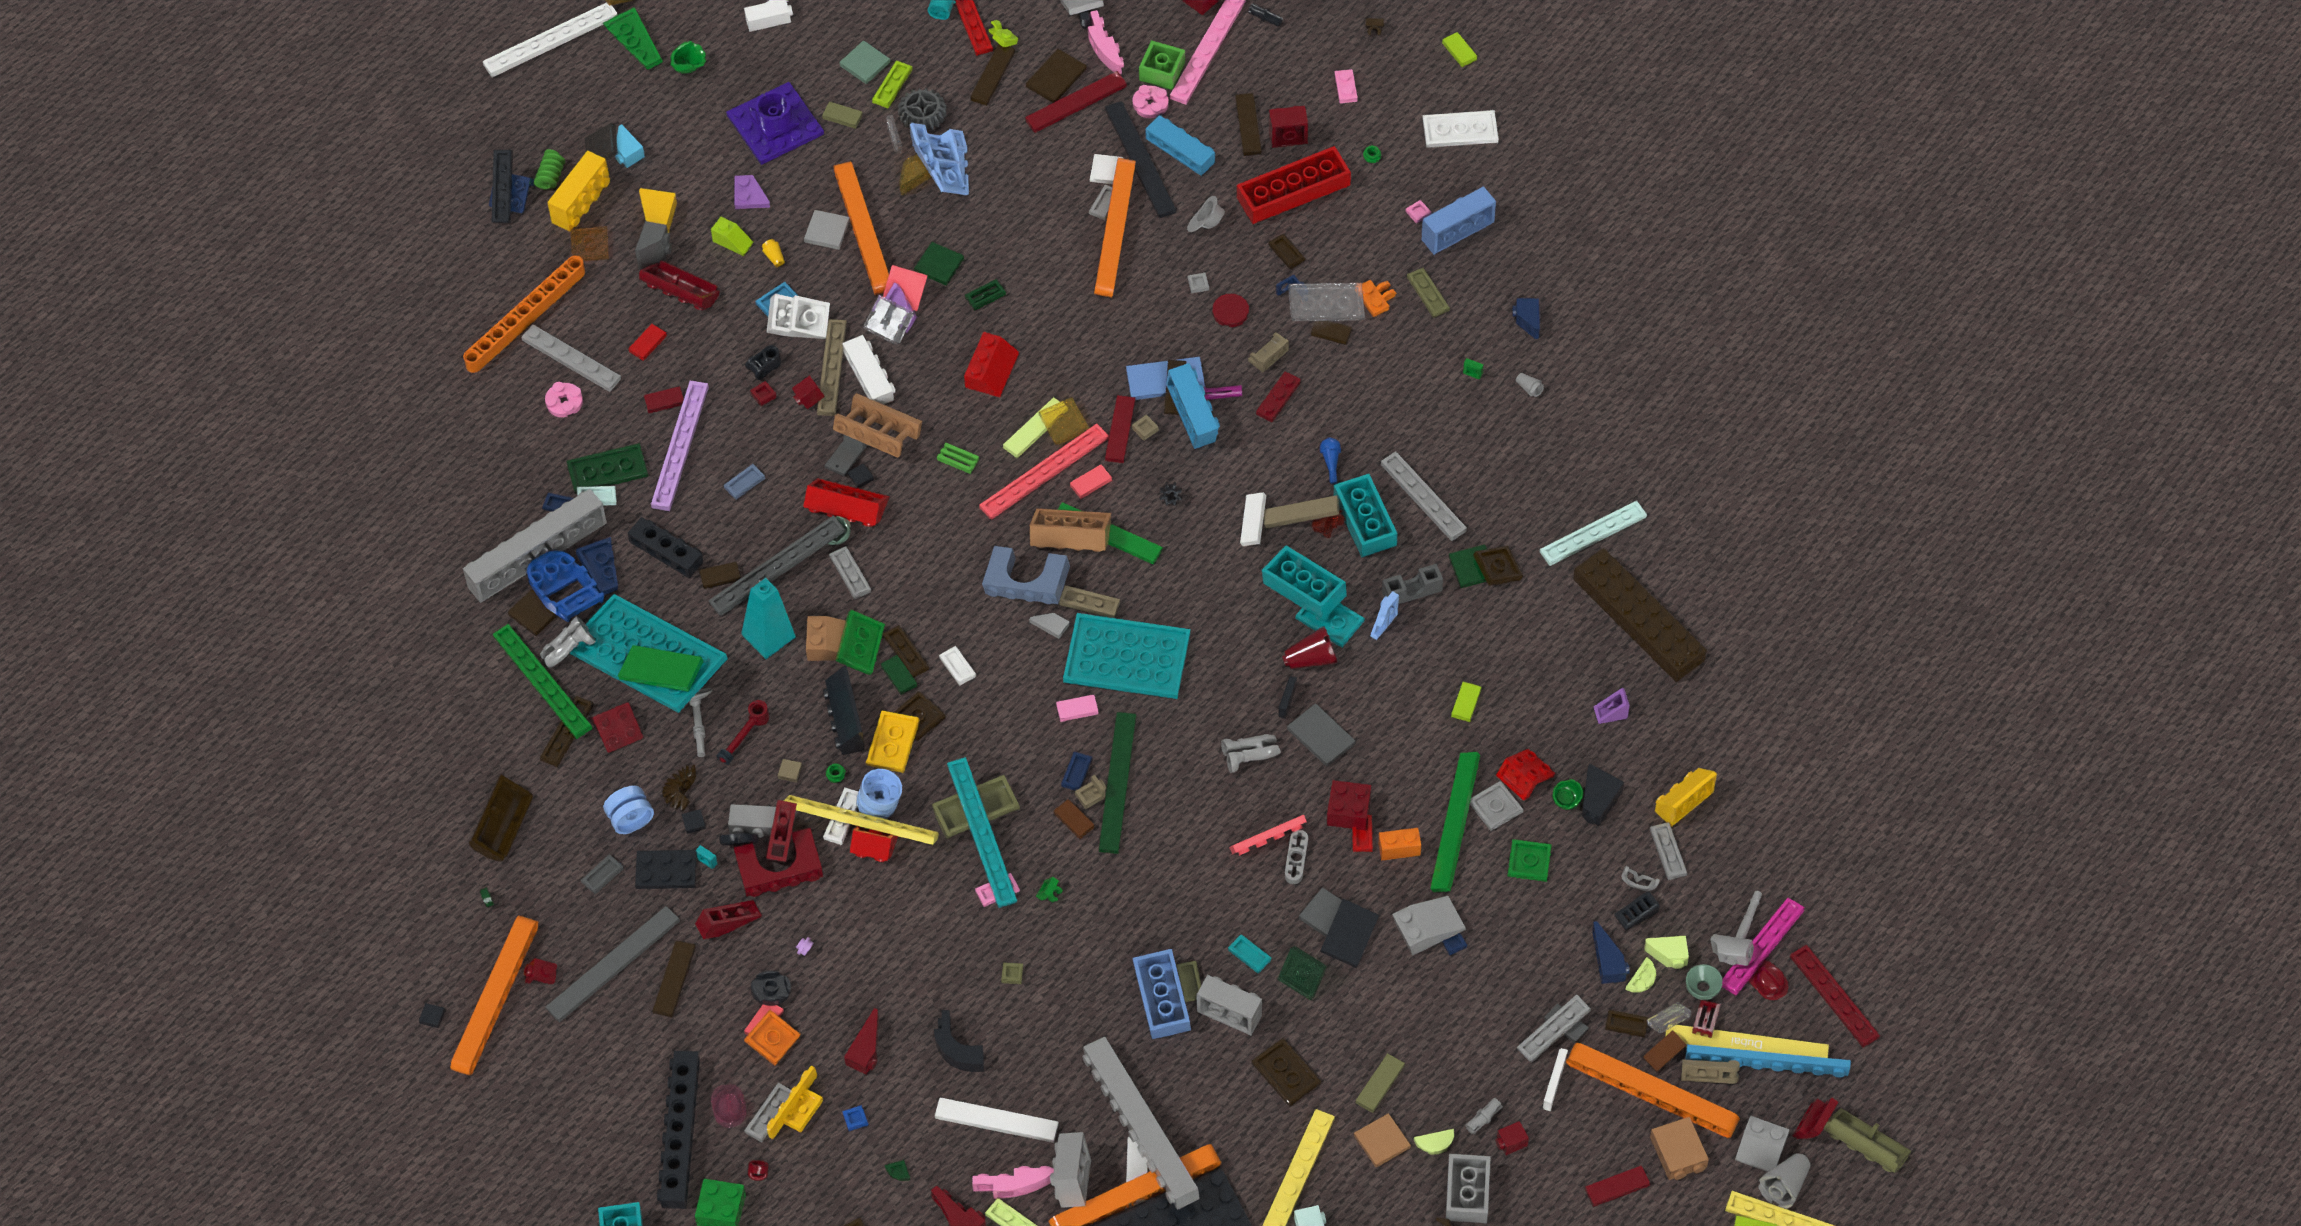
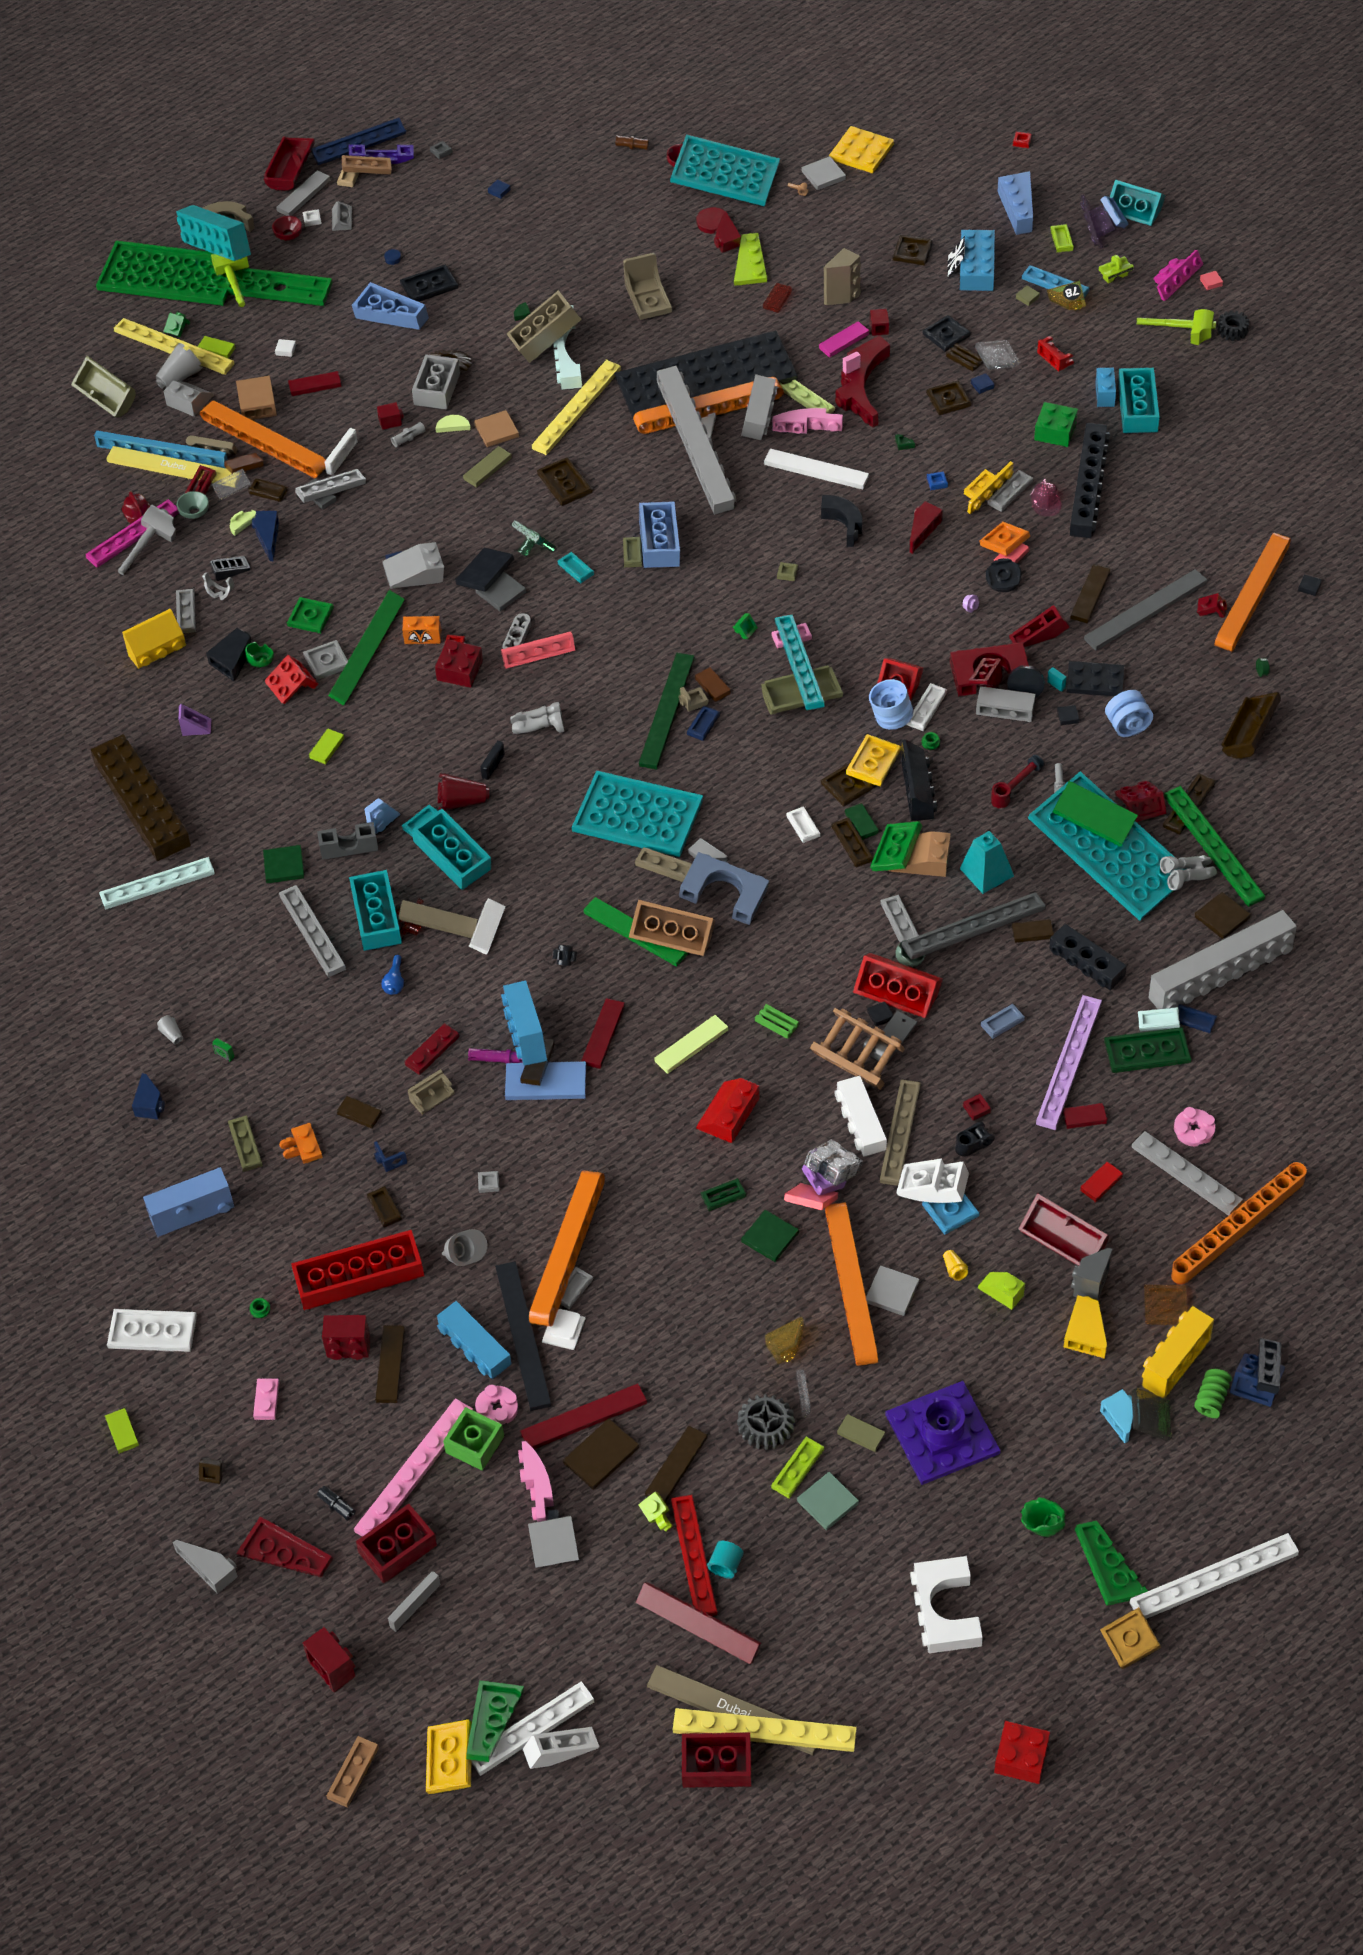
camera: 170 degrees left, 5 degrees down
(554, 572) = (1204, 937): blue slope -> none
(599, 562) = (1155, 948): dark blue wing -> none
(602, 874) = (1155, 680): dark grey tile -> none
(676, 788) = (1082, 744): dark brown hair -> none
(749, 193) = (979, 1345): medium lavender wing -> none
(758, 1167) = (1022, 449): dark red tile -> none
(790, 770) = (974, 748): dark tan tile -> none
(807, 392) = (928, 1095): dark red brick -> none
(864, 820) = (916, 690): light yellow tile -> none
(943, 157) = (752, 1347): light blue wedge -> none
(1044, 471) = (688, 999): coral tile -> none
(1063, 421) = (660, 1041): clear yellow tile -> none
(1077, 708) = (693, 776): bright pink tile -> none
(1090, 481) = (643, 983): coral tile -> none
(1145, 427) = (577, 1021): dark tan tile -> none
(1229, 1004) = (602, 516): light grey brick -> none
(1230, 310) = (460, 1146): dark red tile -> none
(1321, 735) = (469, 731): dark grey tile -> none
(1326, 301) = (356, 1130): clear tile -> none
(1418, 211) = (228, 1236): bright pink tile -> none
(1498, 565) = (259, 856): dark brown tile -> none
(1668, 950) = (213, 532): yellowish green slope -> none
(1815, 1118) = (139, 401): dark red slope -> none
(1834, 996) = (87, 494): dark red tile -> none

